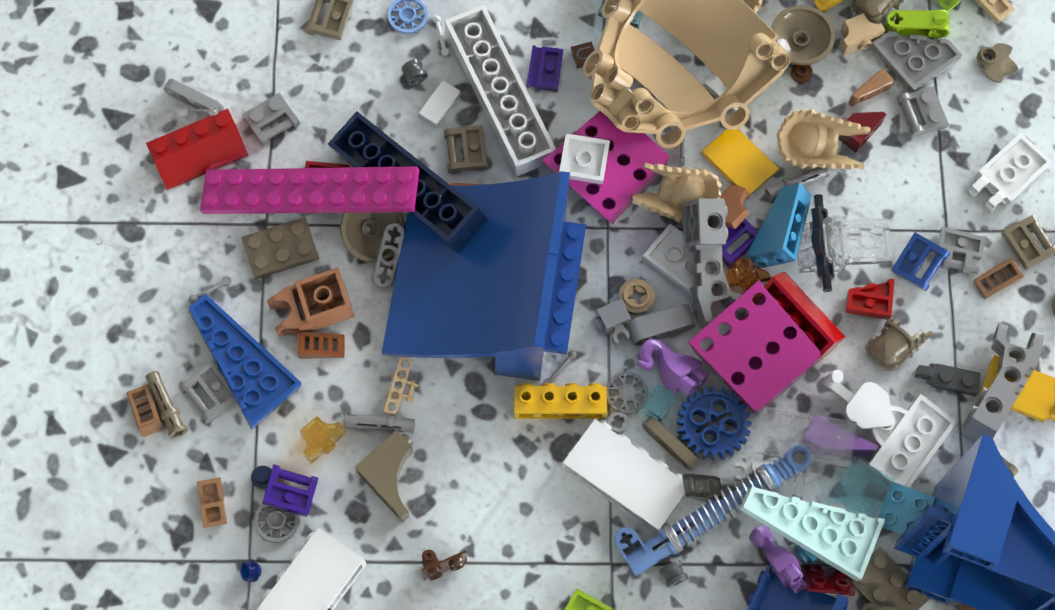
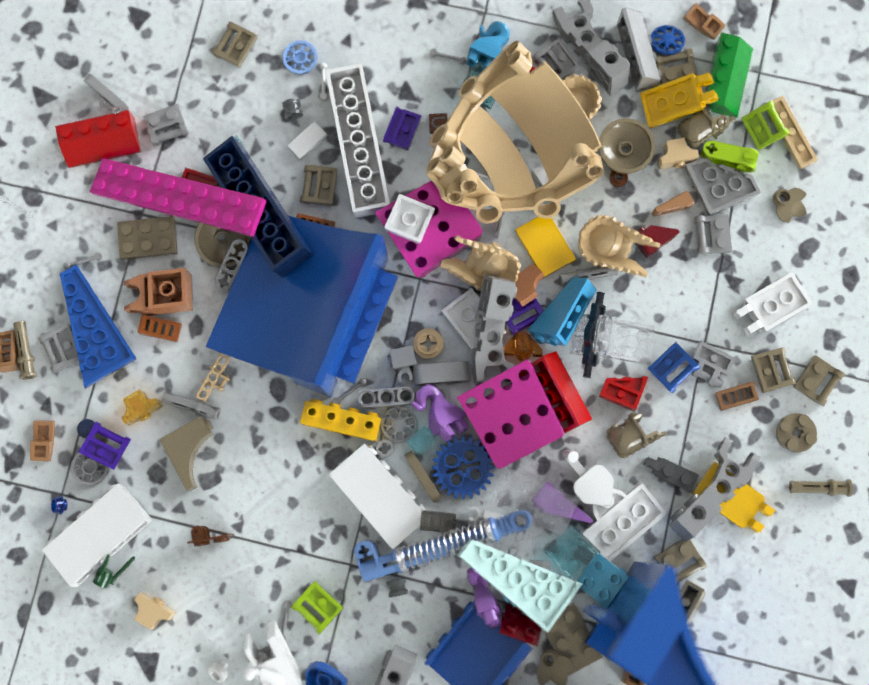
camera: 20 degrees right, 10 degrees up
(598, 373) = (377, 395): none -> light grey beam

